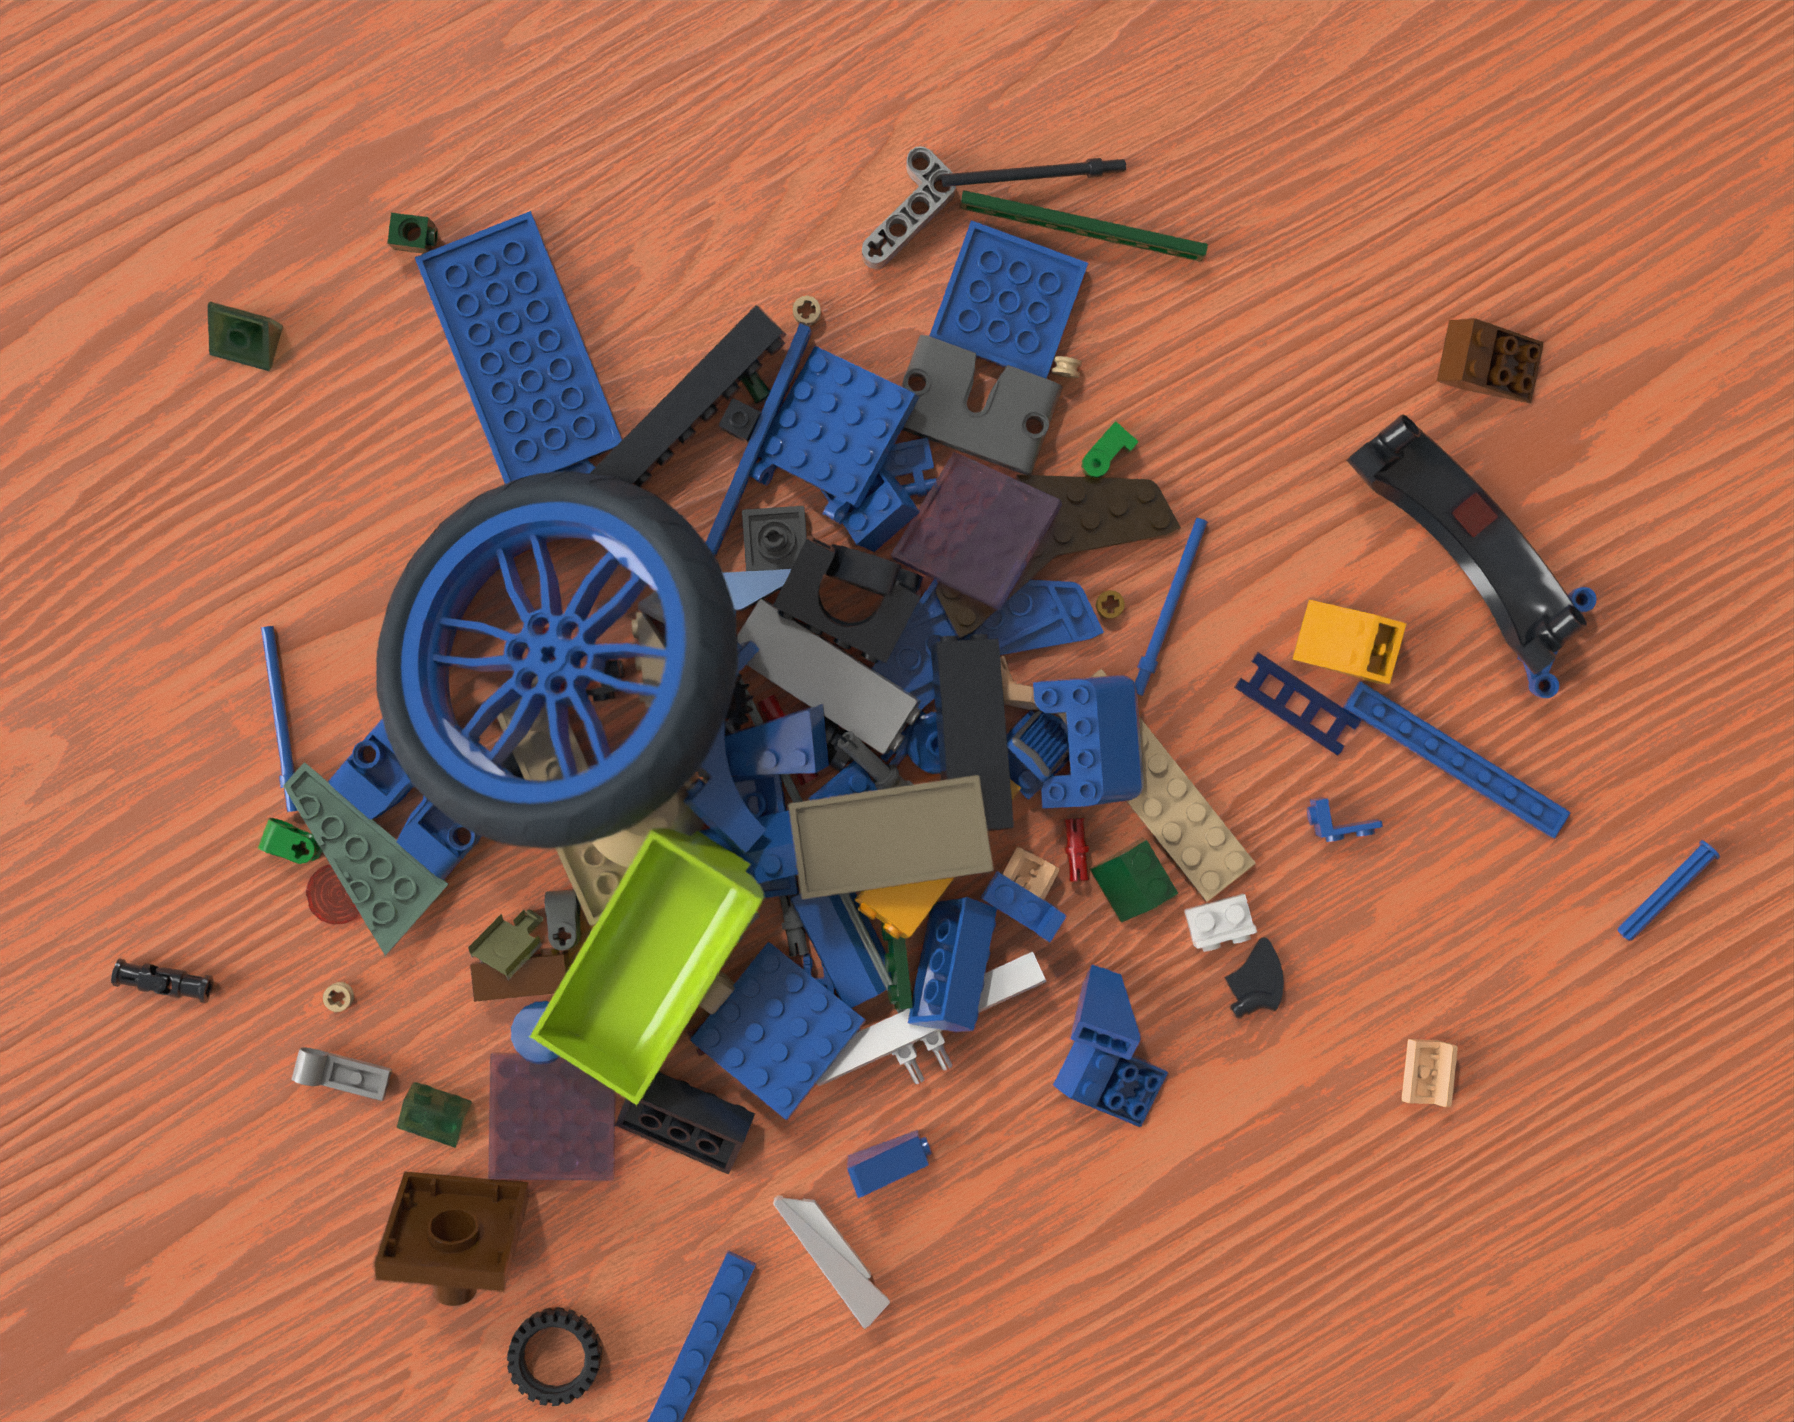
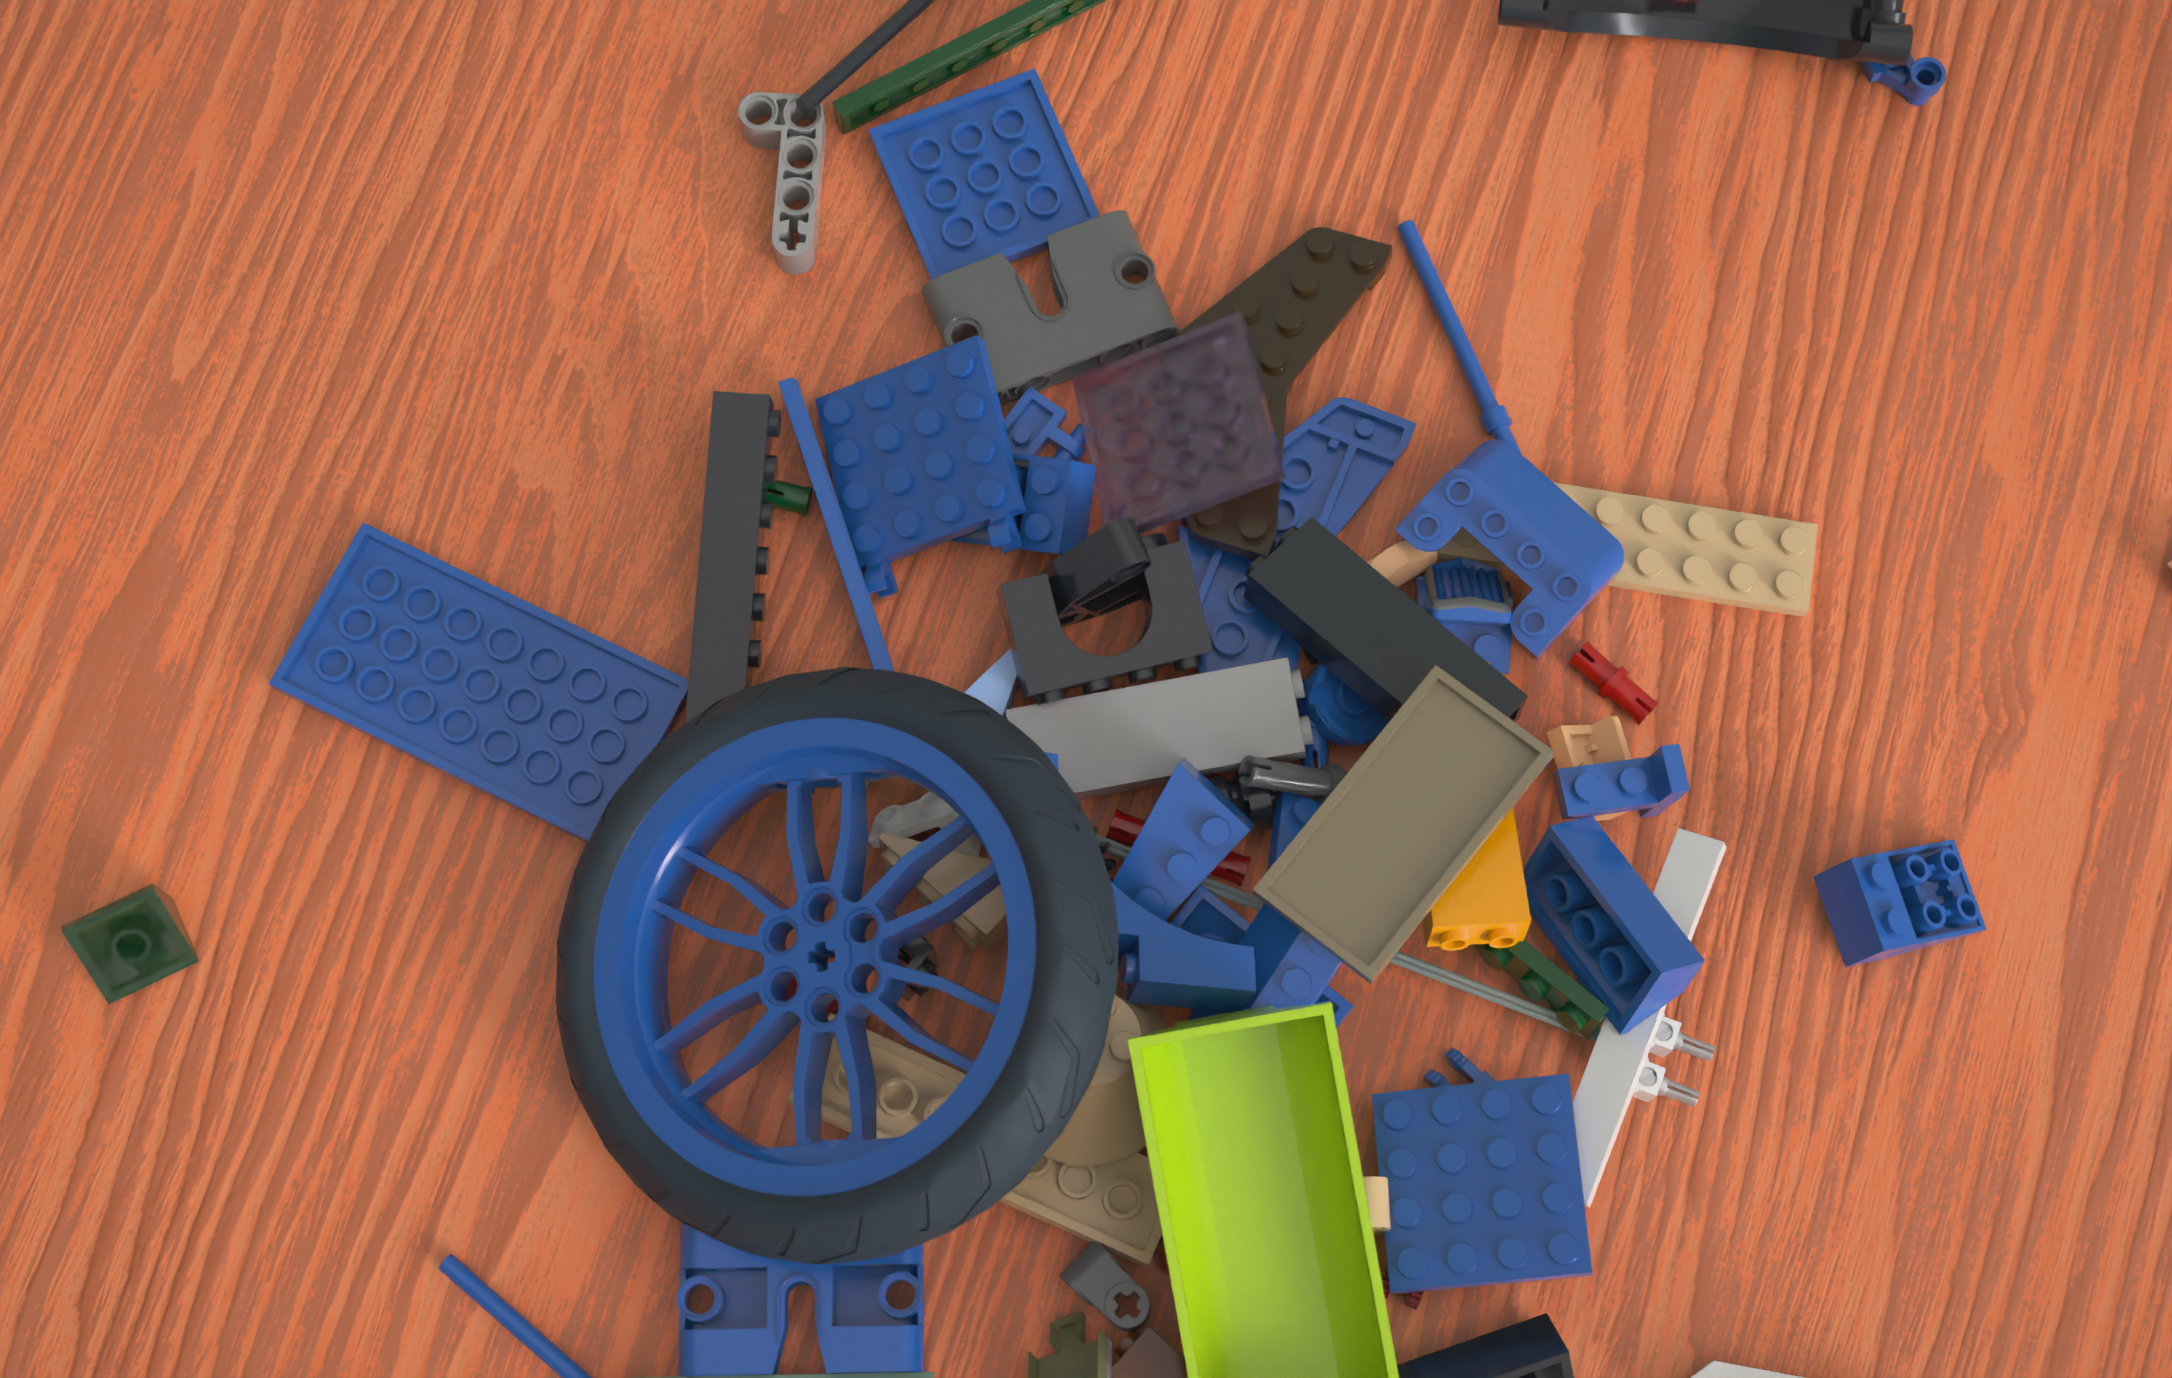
camera: 40 degrees left, 15 degrees down
(401, 225) = (224, 657): dark green brick -> none
(739, 420) = (805, 544): black brick -> none
(773, 537) = (956, 636): dark grey plate -> none
(794, 927) = (1380, 1051): dark grey pin -> none
(813, 317) = (765, 358): tan bush -> none
(841, 946) = (1454, 1022): blue slope -> none
(887, 1162) = (1751, 1227): blue slope -> none
(1066, 367) = (1111, 191): tan bush -> none
(1098, 458) = (1234, 249): green leg -> none
(1105, 1014) = (1827, 823): blue slope -> none
(1116, 611) = (1391, 379): pearl gold bush -> none
(1134, 880) = (1708, 657): dark green slope -> none
(1220, 922) = (1842, 621): white bracket -> none
(1257, 981) = (1947, 650): black arm -> none
(1302, 722) = (1673, 342): clear blue bar -> none
(1320, 817) = (1840, 415): blue bracket -> none
(1349, 642) = (1685, 207): light orange slope -> none
(1456, 760) = (1912, 236): blue tile -> none

